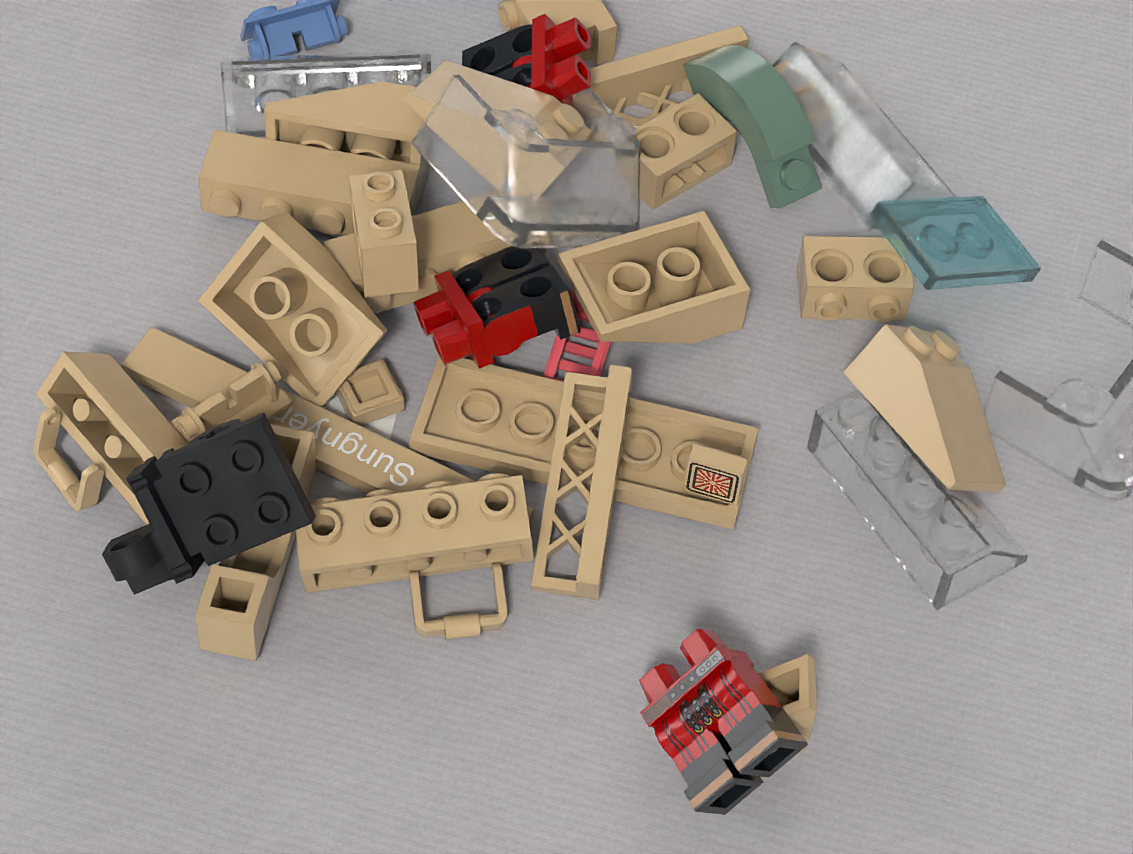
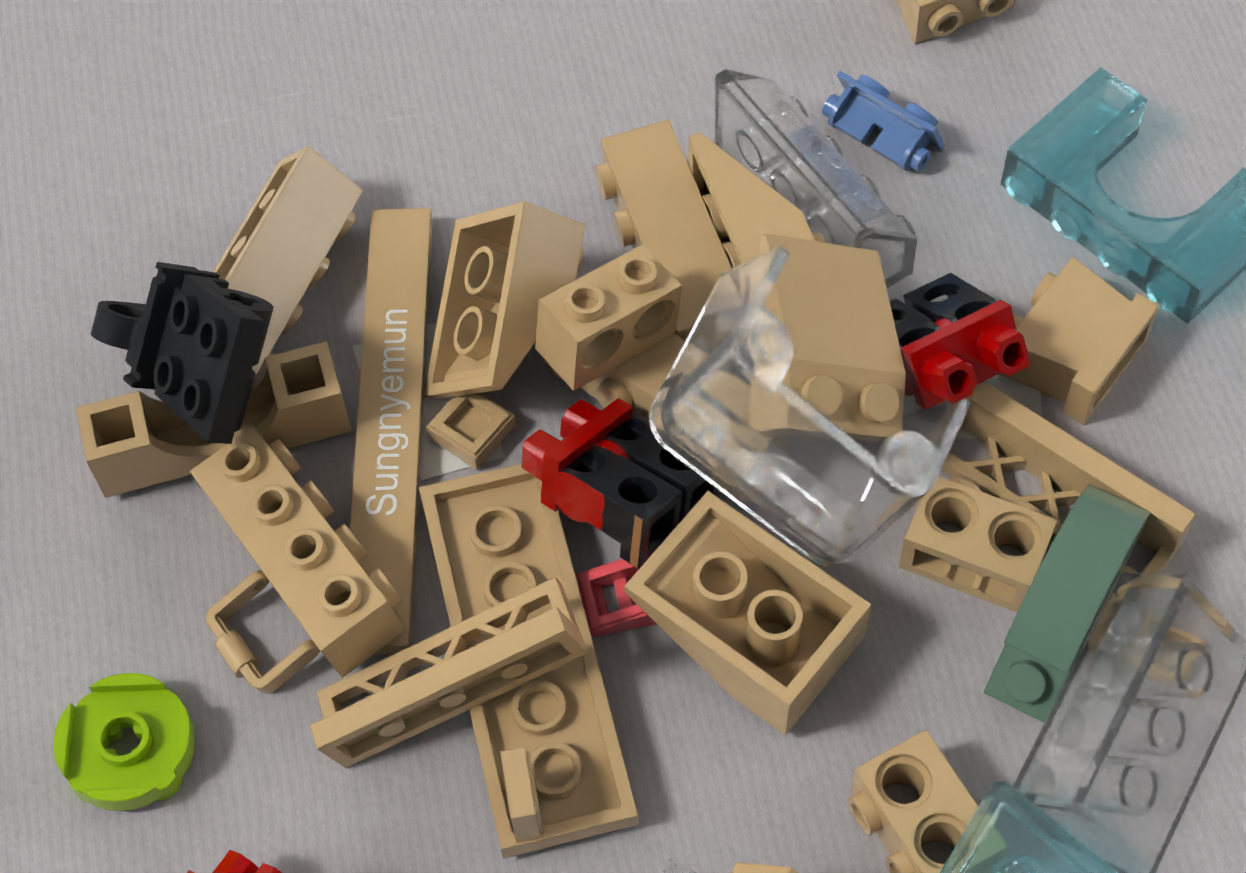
camera: 70 degrees right, 5 degrees up
(77, 492) = (209, 253): tan piece -> none
(241, 399) = (354, 320): tan hinge -> none
(499, 757) = (151, 769): none -> lime plate

